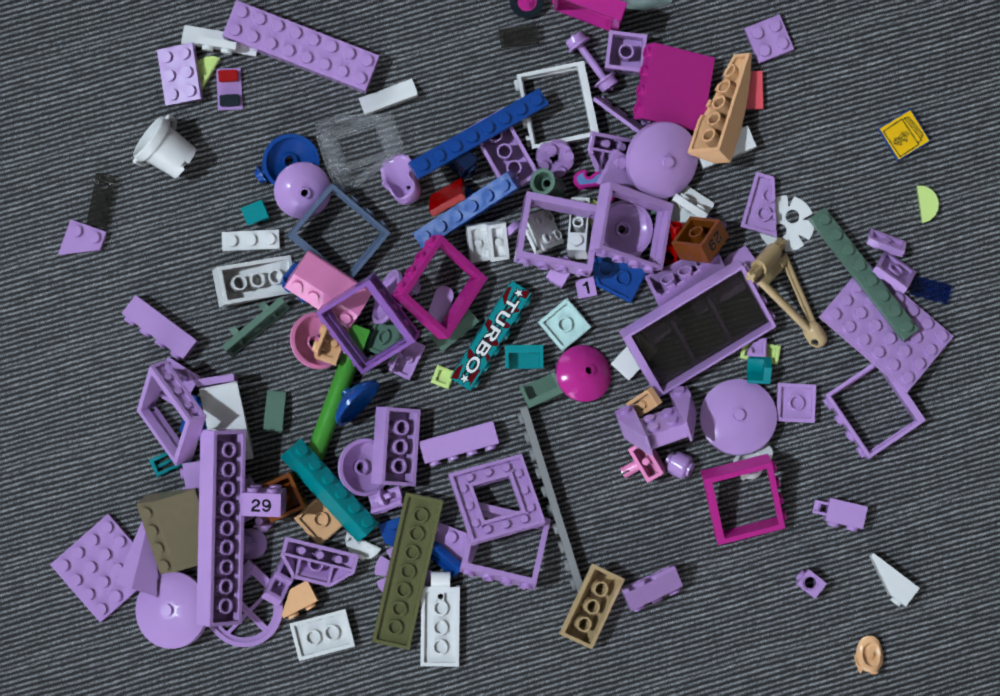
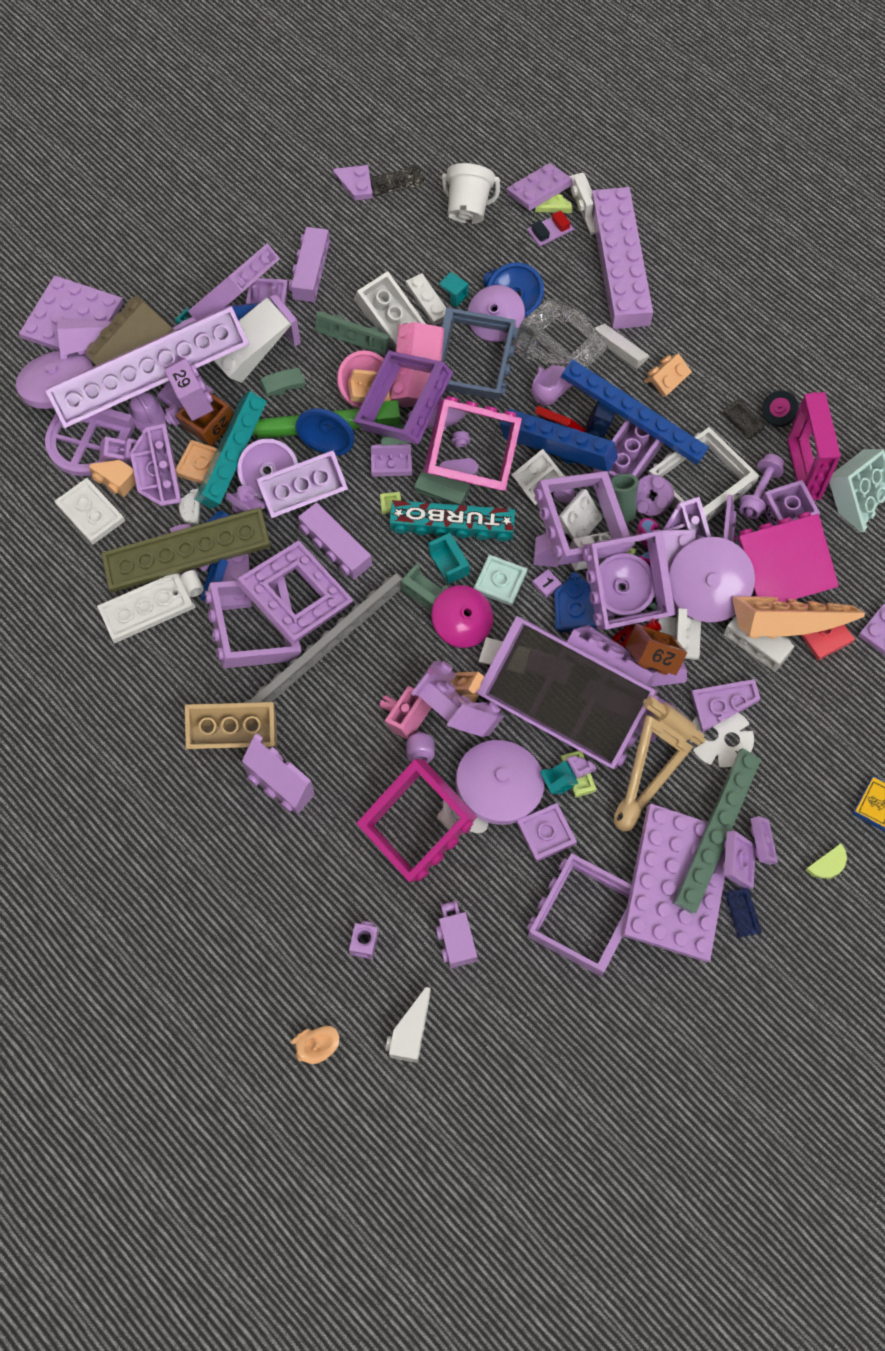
camera: 60 degrees right, 20 degrees down
(440, 74) = (668, 374): none -> light nougat bracket

